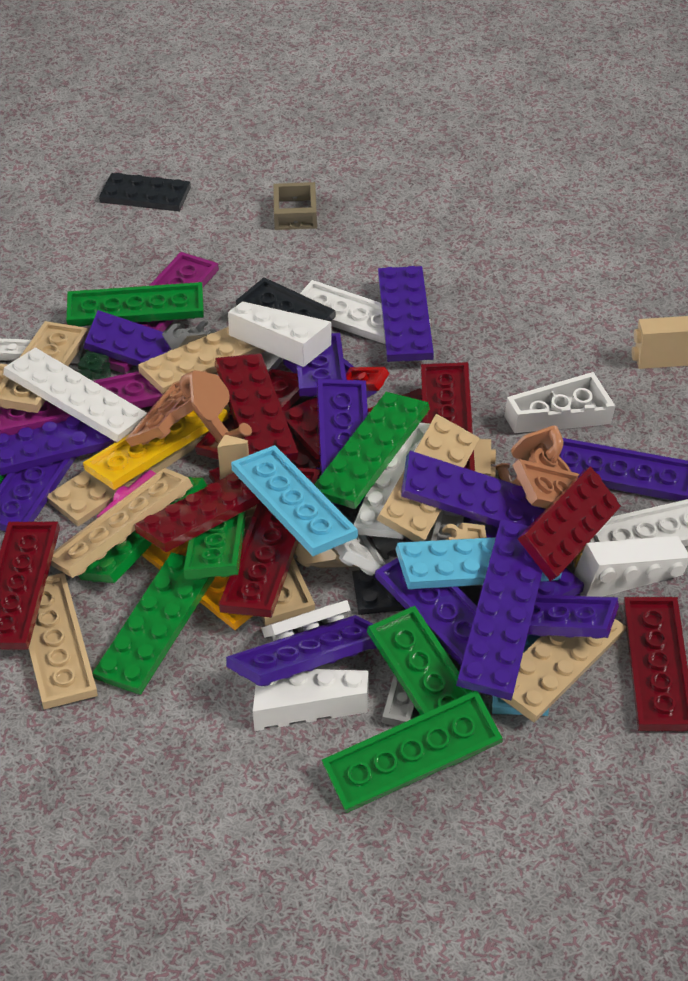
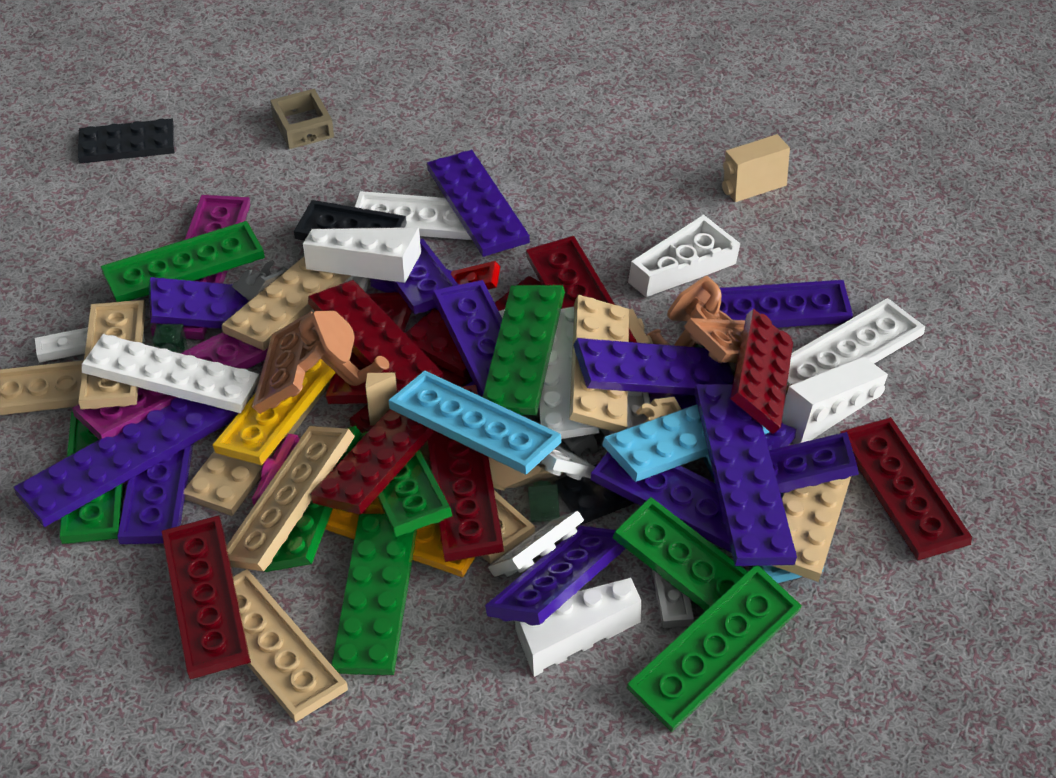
camera: 20 degrees left, 0 degrees up
(333, 585) = (543, 501): none -> clear green bracket

